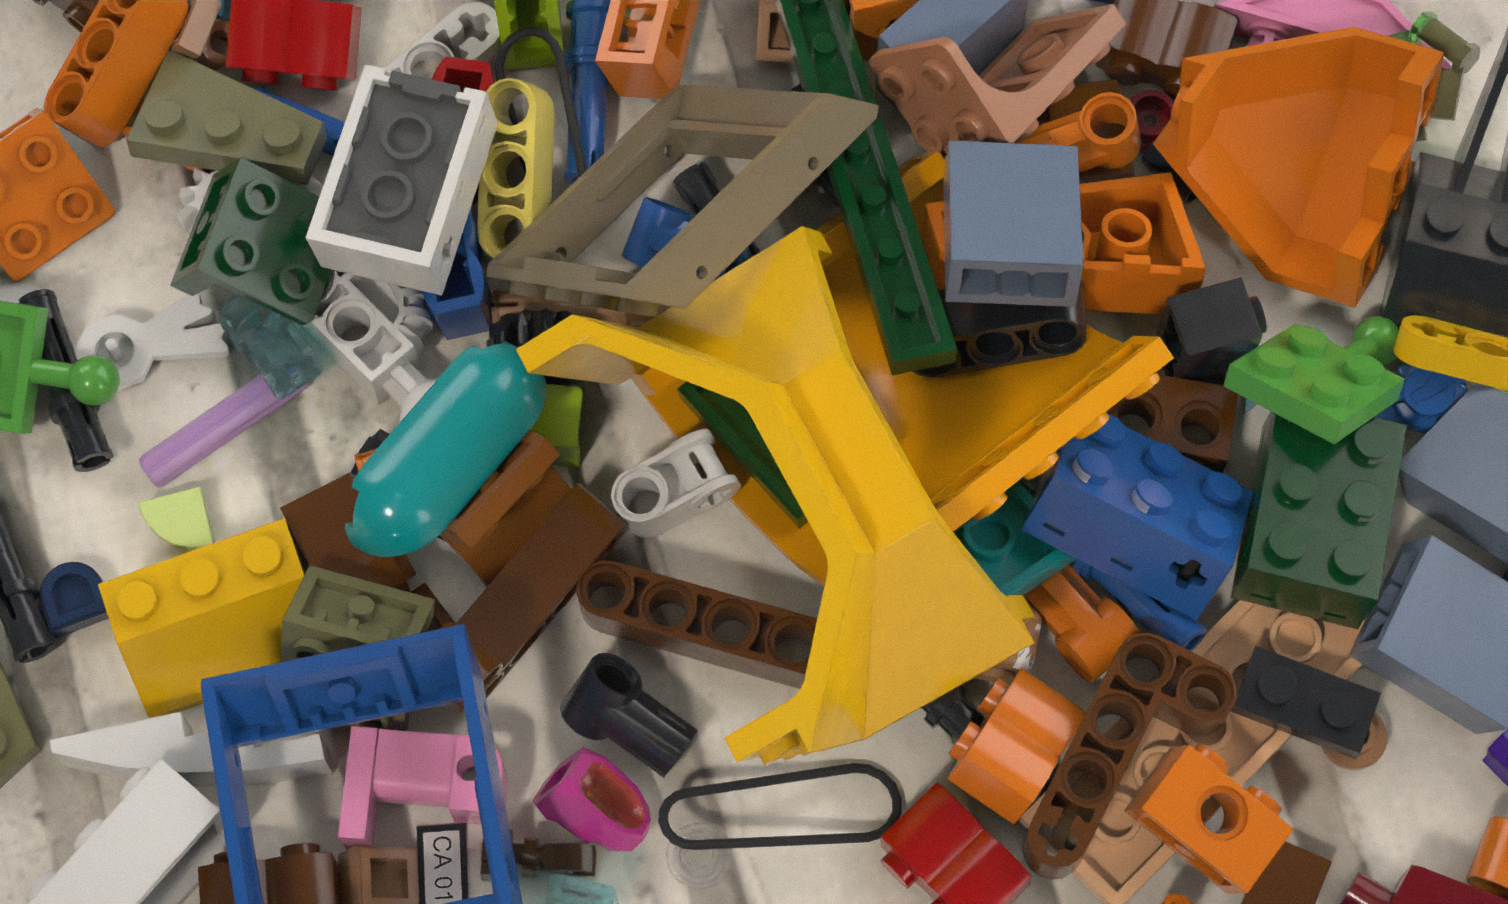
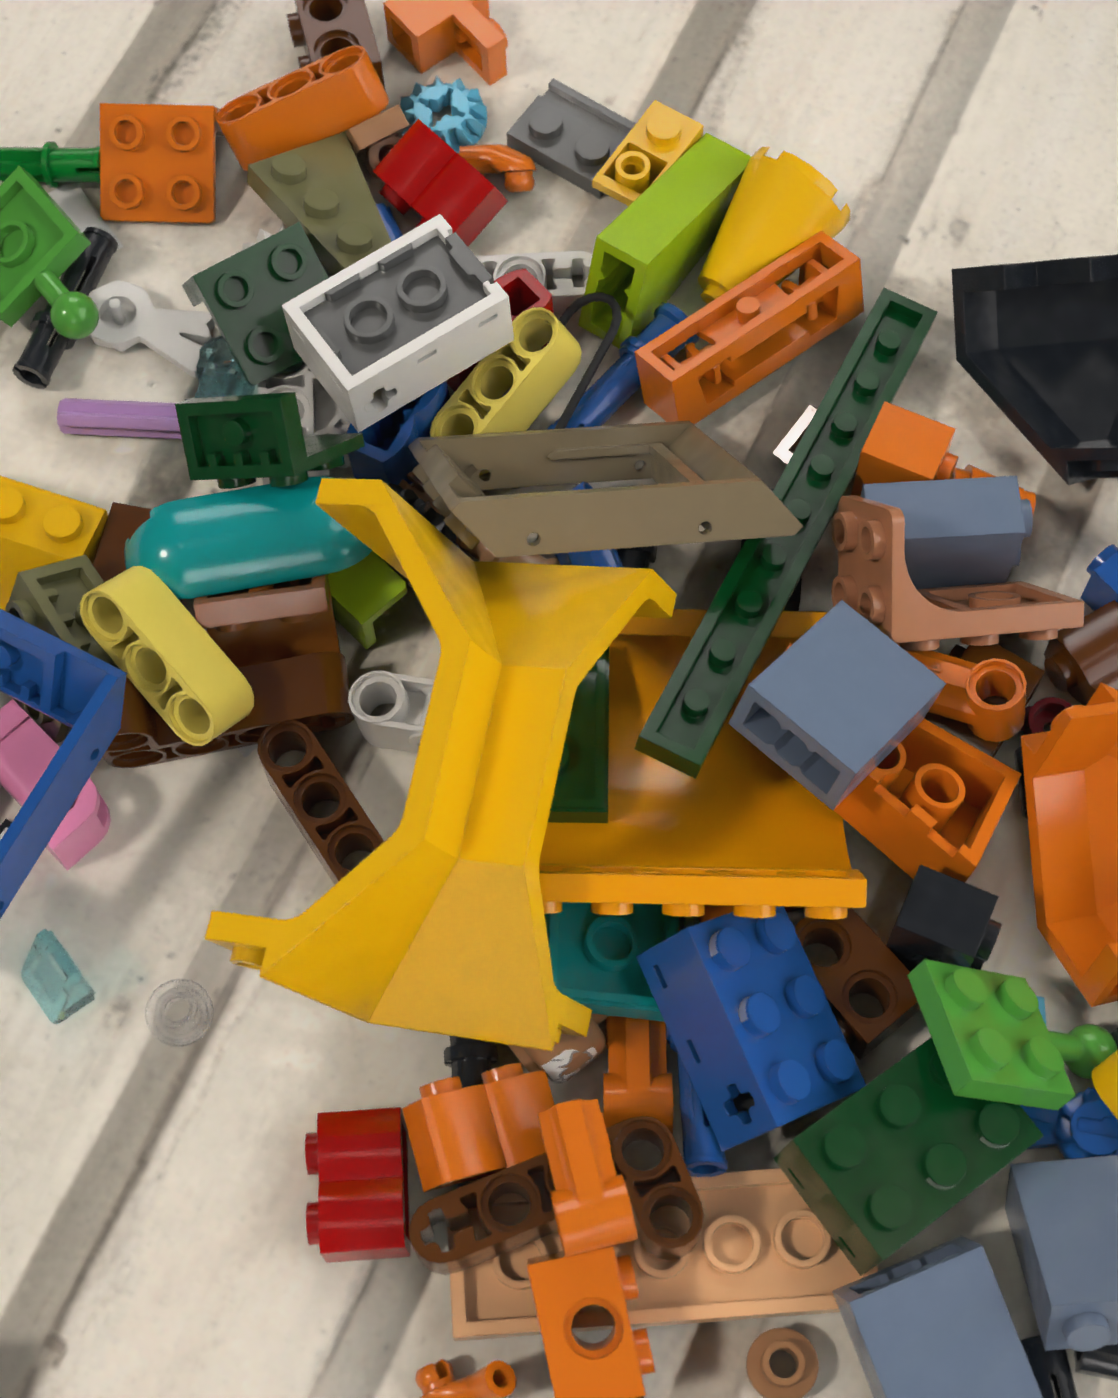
camera: 40 degrees right, 5 degrees down
(179, 519) = (53, 463): yellowish green tile -> none
(392, 364) = (254, 439): none -> dark green bracket
(459, 583) = (167, 655): none -> light yellow beam
(552, 858) = (57, 907): dark brown piece -> none
(595, 802) = (138, 906): dark pink rock -> none
(611, 704) = (215, 841): black piece -> none
(780, 840) = (285, 1000): black piece -> none
(1010, 334) = (765, 795): black beam -> none
(1148, 725) = (588, 1196): none -> orange piece
(1306, 702) = (760, 1299): black plate -> none

